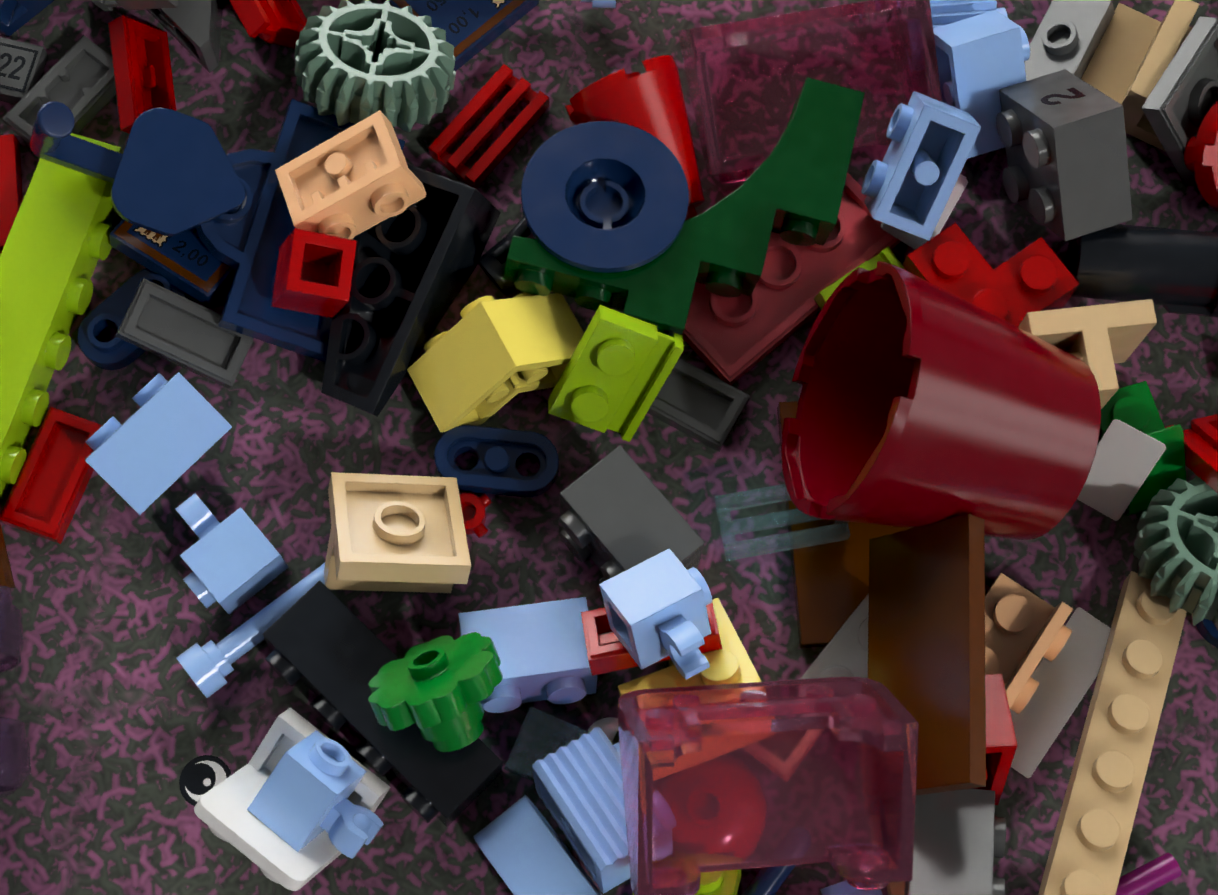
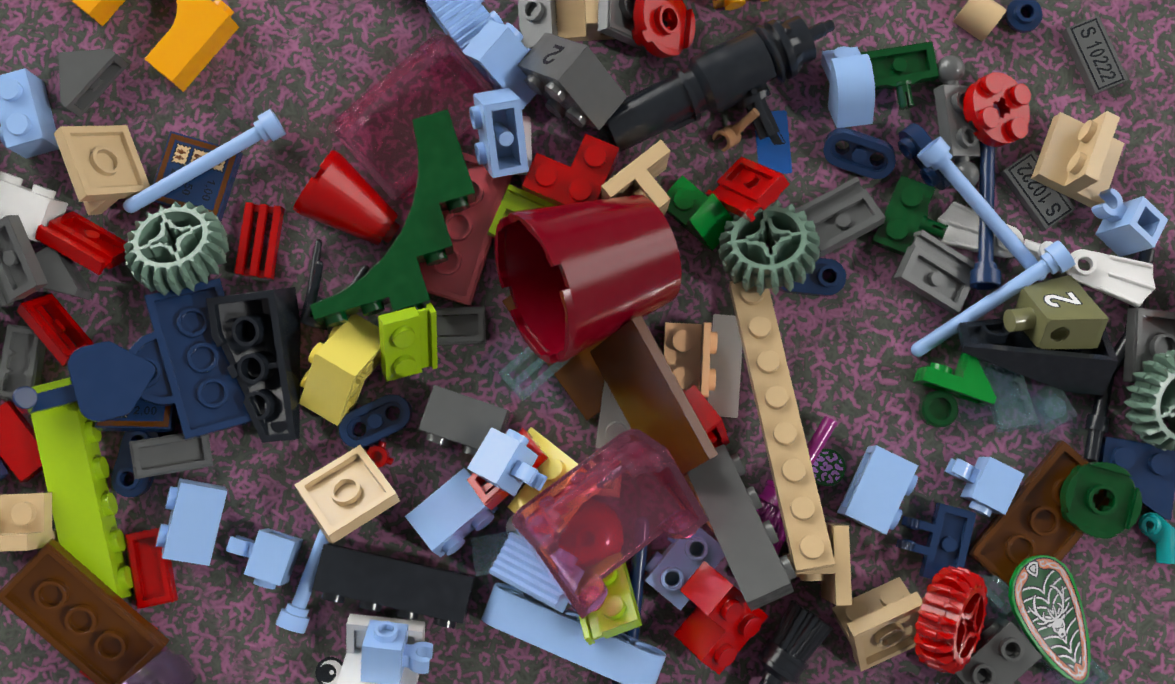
camera: 30 degrees left, 10 degrees up
(314, 273) = (217, 387): red brick -> none
(350, 181) = (204, 327): light nougat bracket -> none
(438, 689) = (418, 566): green plant -> none
(604, 196) = (344, 253): dark blue hat -> none
(1119, 468) = (693, 234): white sticker -> none

